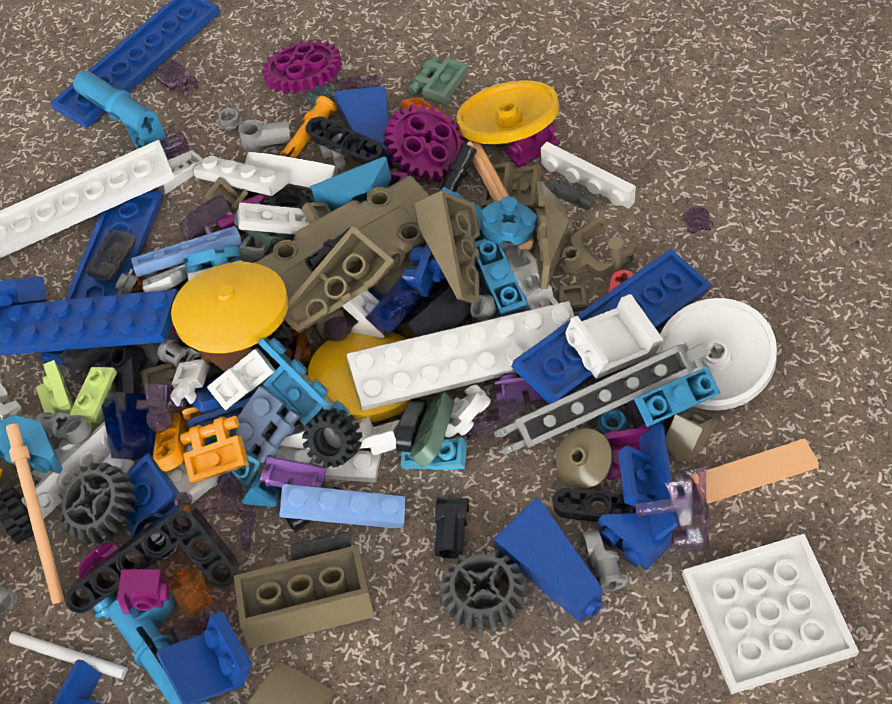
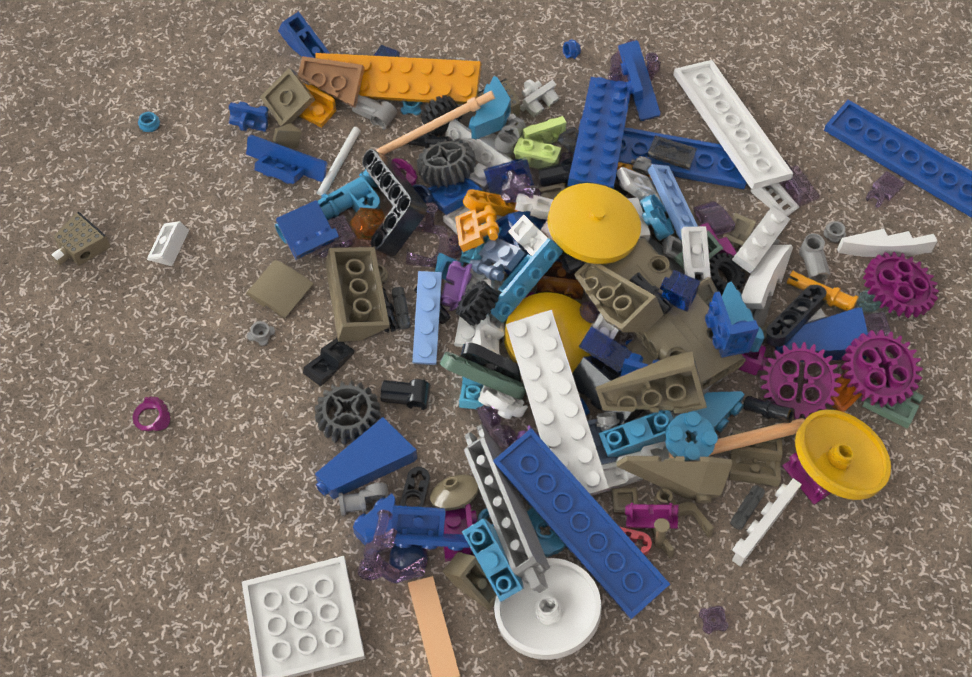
camera: 85 degrees right, 5 degrees up
(52, 527) = (428, 139): none -> black axle
(139, 121) = (813, 158): dark azure piece -> none
(142, 589) = (363, 188): magenta brick -> none
(251, 77) = (878, 242): none -> white slope
(329, 219) = (680, 289): none -> clear blue brick
(382, 175) = (729, 338): none -> blue bracket
(404, 628) = (329, 361): none -> black slope
(409, 77) = (881, 368): none -> magenta gear
(593, 265) = (646, 514): none -> magenta hinge
(614, 338) = (554, 510): white panel -> none

